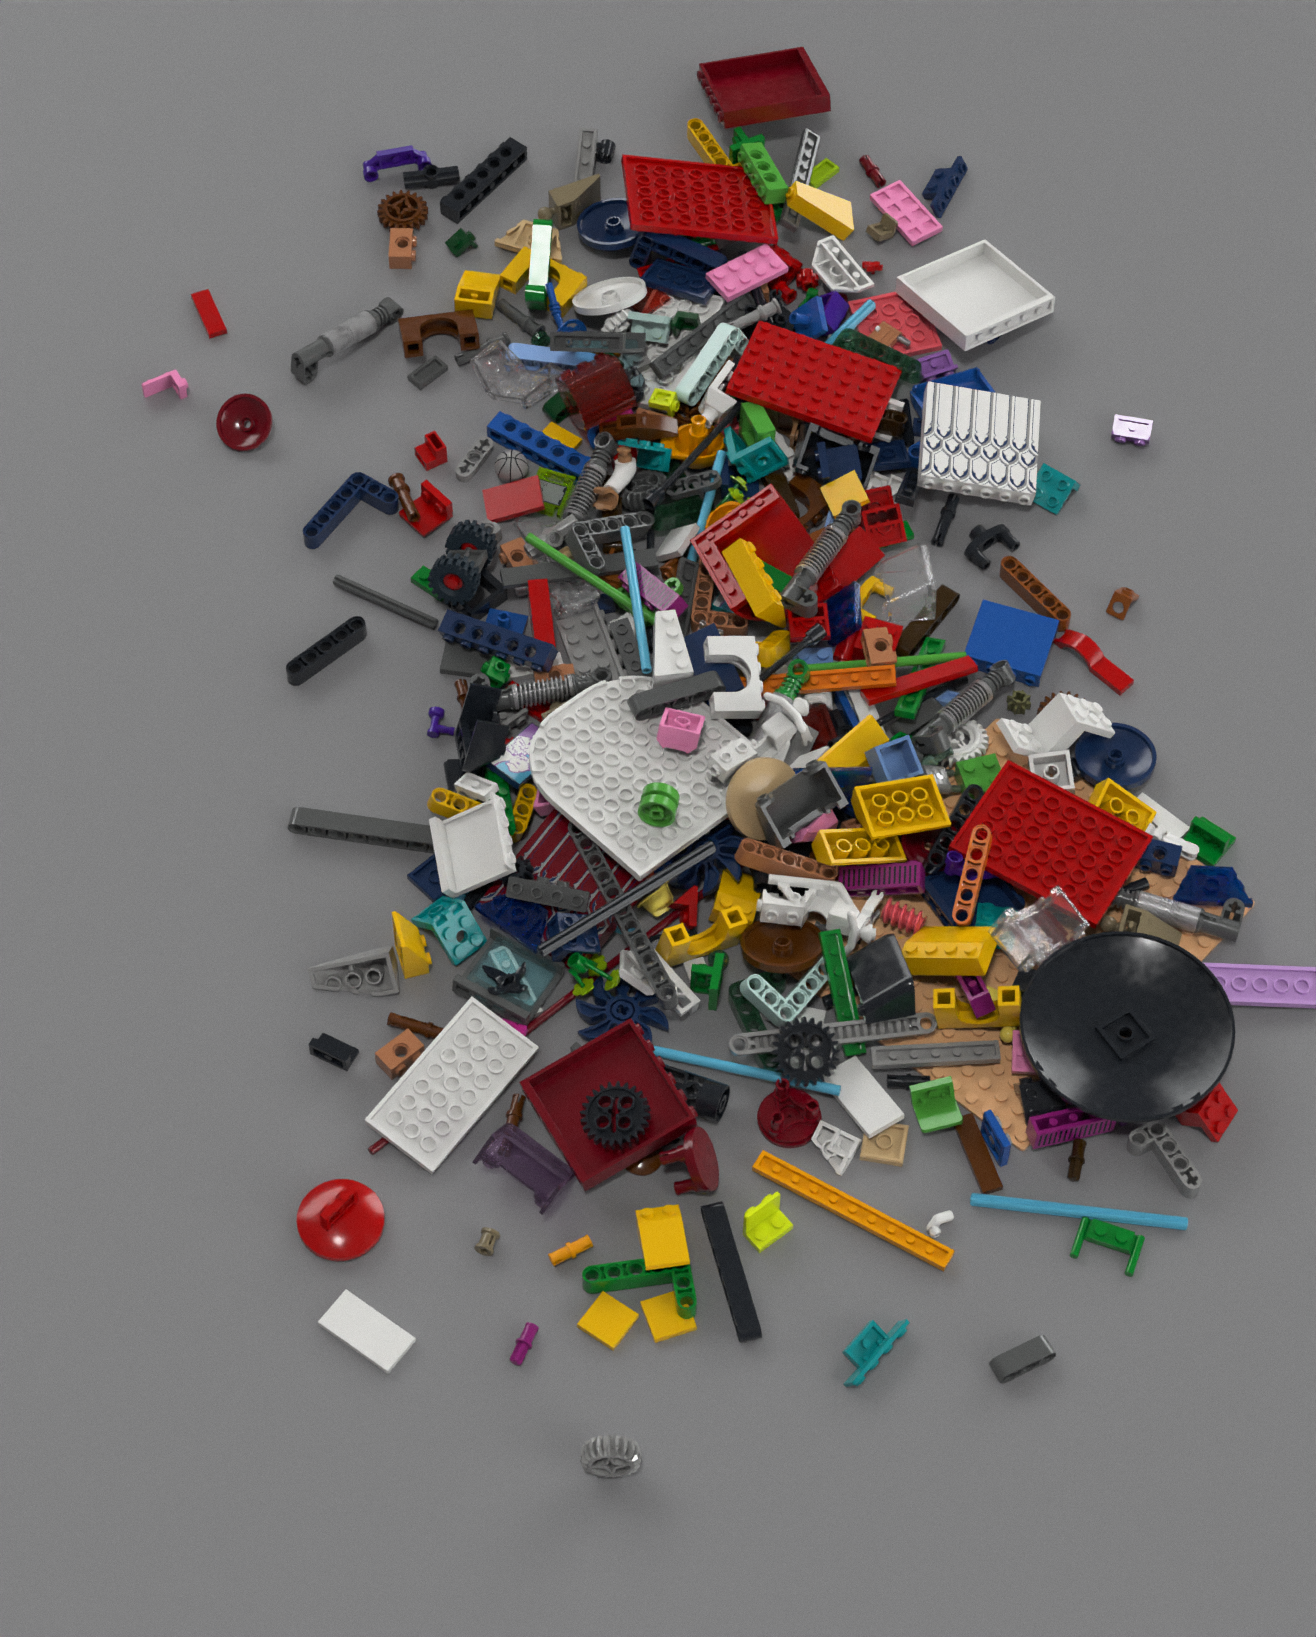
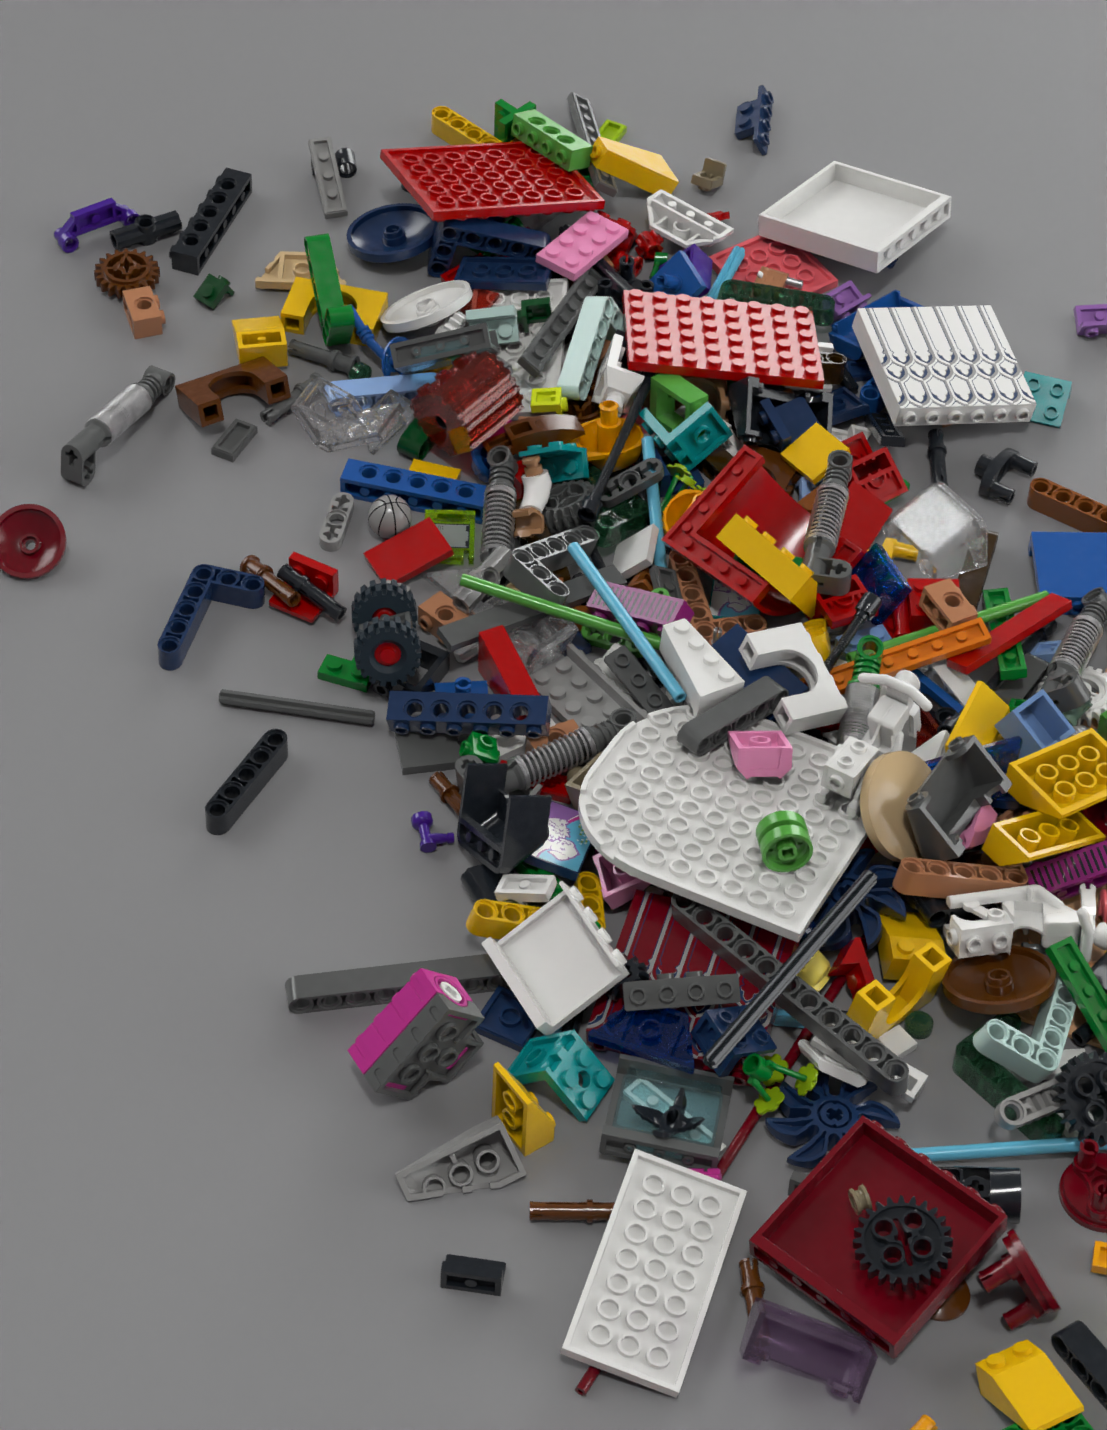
camera: 20 degrees left, 10 degrees down
(357, 876) = (419, 1036): none -> dark grey piece
(388, 1058) = (571, 1237): nougat brick -> none
(427, 511) = (307, 589): none -> black pin
(432, 452) = (281, 524): red piece -> none
(570, 201) = (333, 215): dark tan slope -> none
(600, 1076) = (859, 1199): none -> dark tan bush
(708, 980) = (928, 1047): green bracket -> none
(761, 313) = (623, 280): light grey pin -> none
(763, 87) = (506, 58): dark red panel -> none
(872, 171) = (666, 122): dark red pin -> none
(913, 219) = (743, 162): bright pink plate -> none

